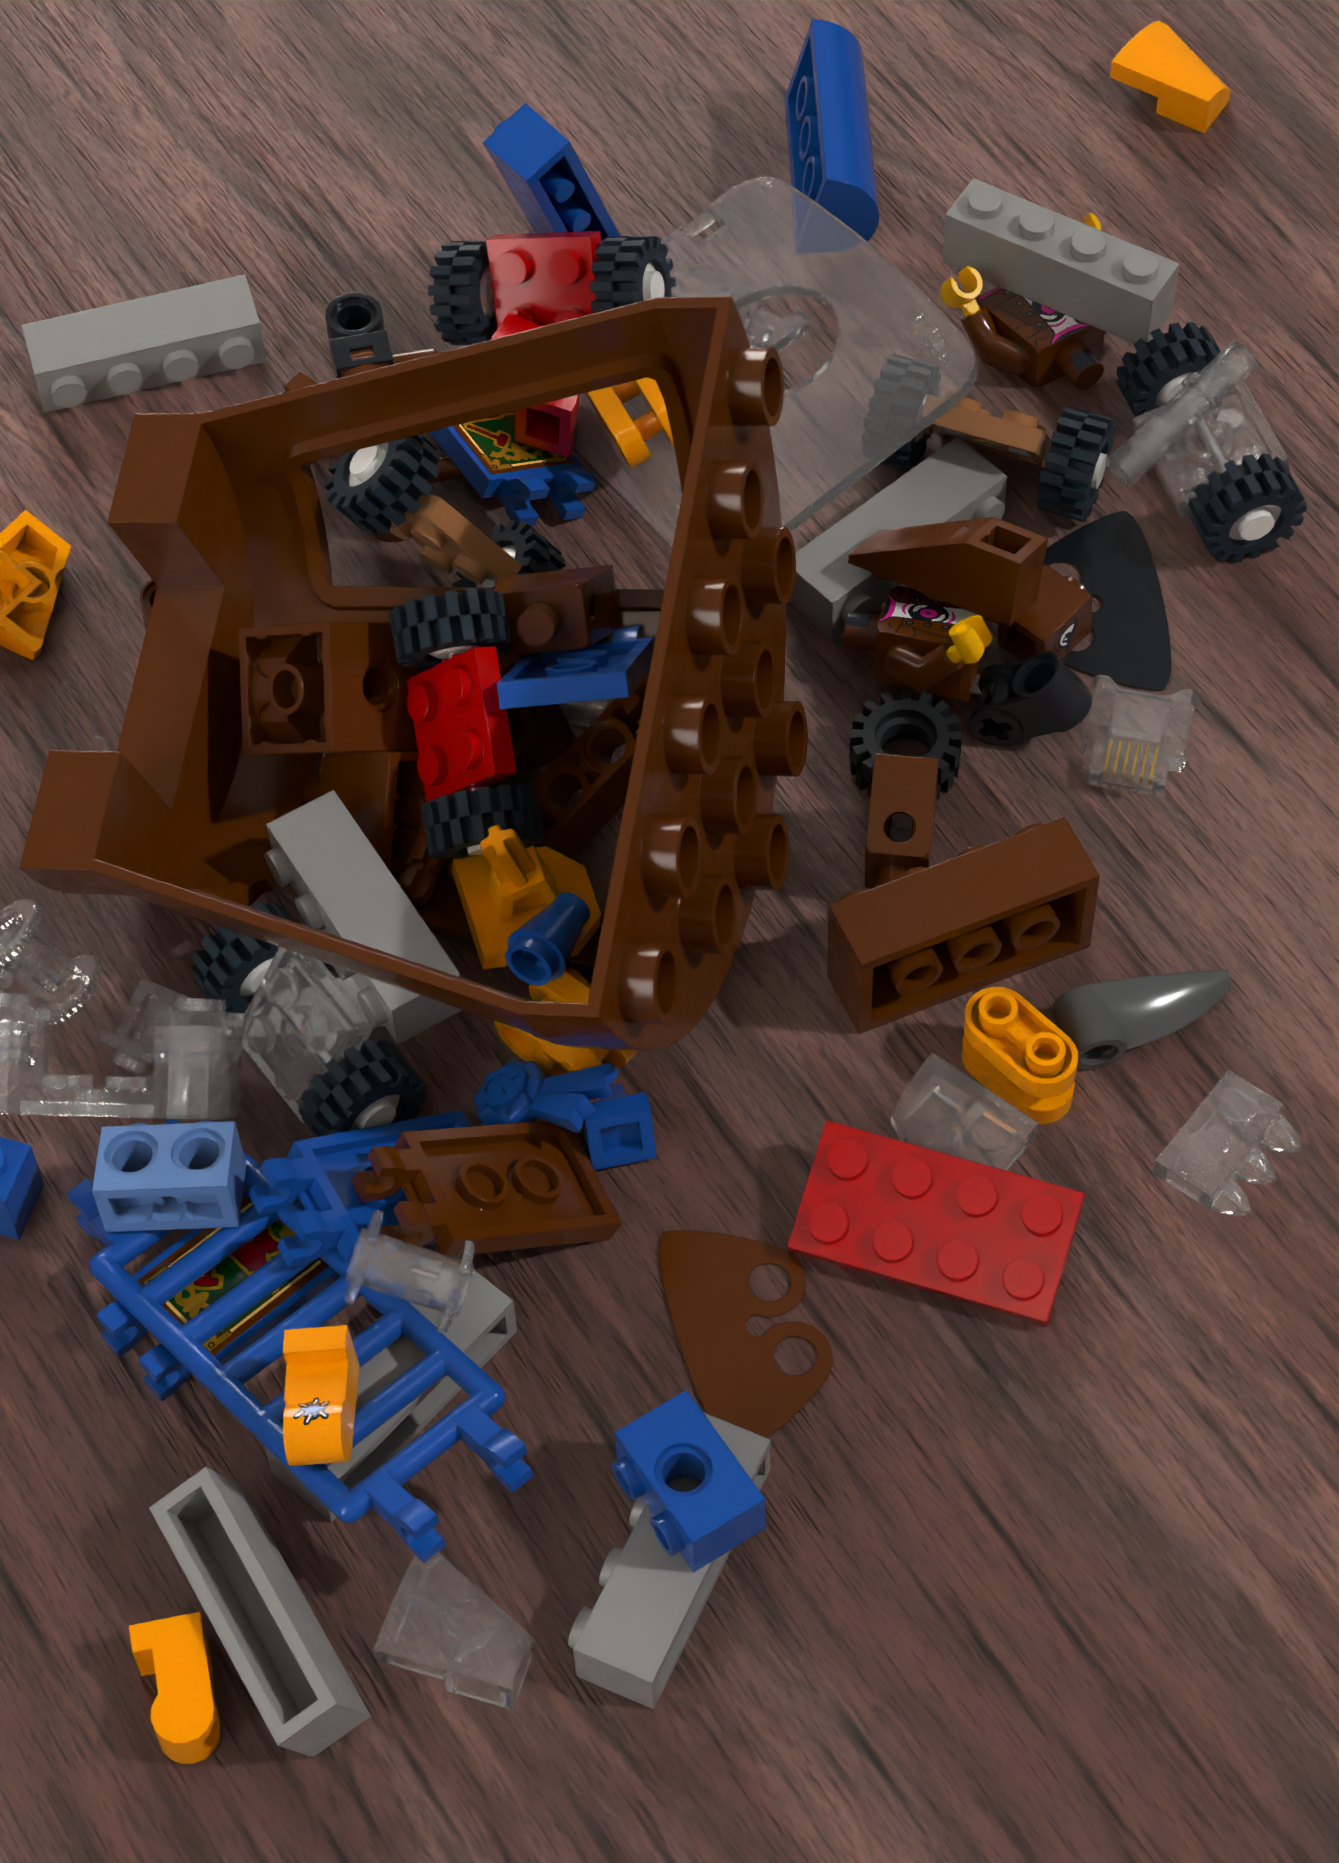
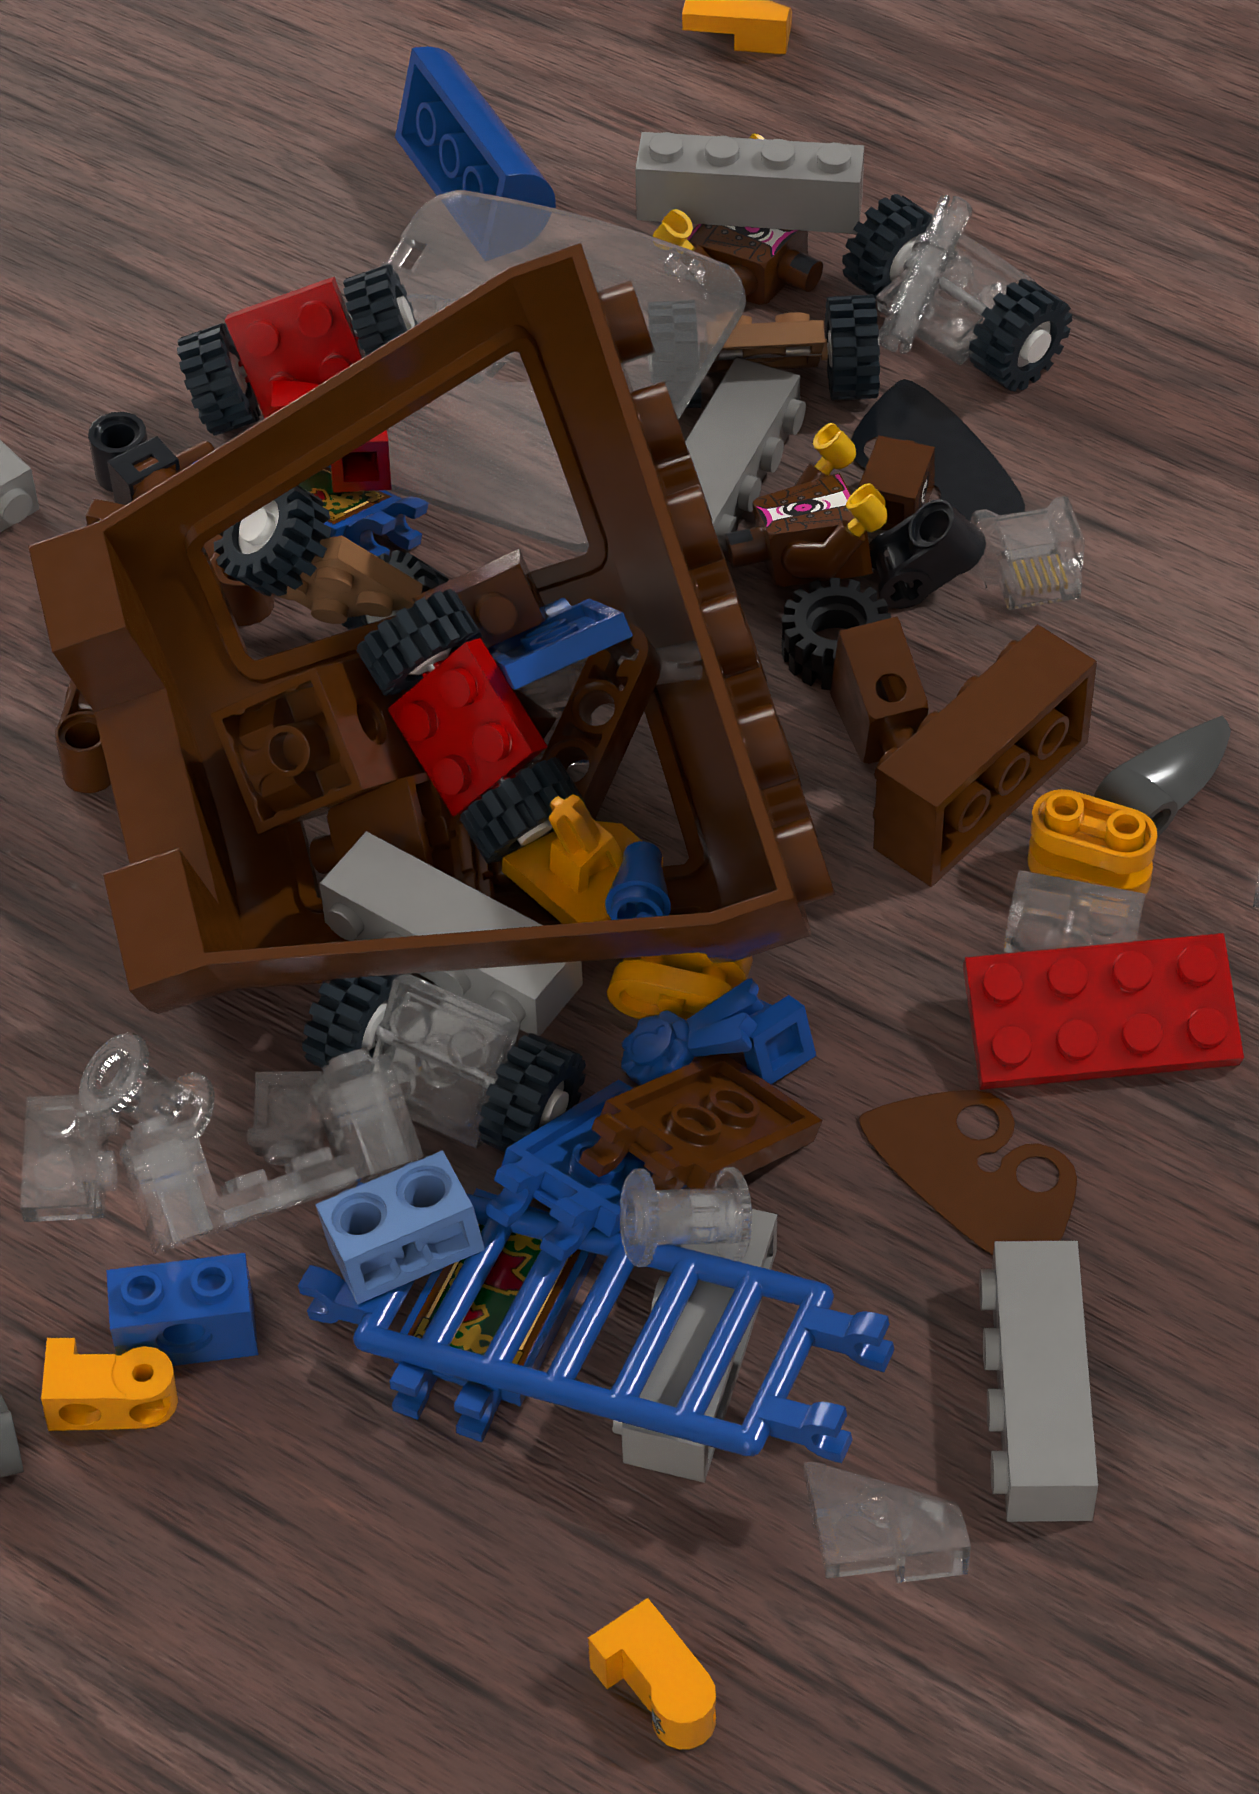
camera: 25 degrees left, 5 degrees down
(259, 1613) = (701, 1575): light grey brick -> none
(319, 1395) = (672, 1349): light orange leg -> none
(547, 176) = (261, 240): blue brick -> none
(630, 434) = (444, 449): light orange brick -> none
(678, 1443) = (1022, 1265): blue brick -> none
(968, 563) = (819, 450): reddish brown slope -> none

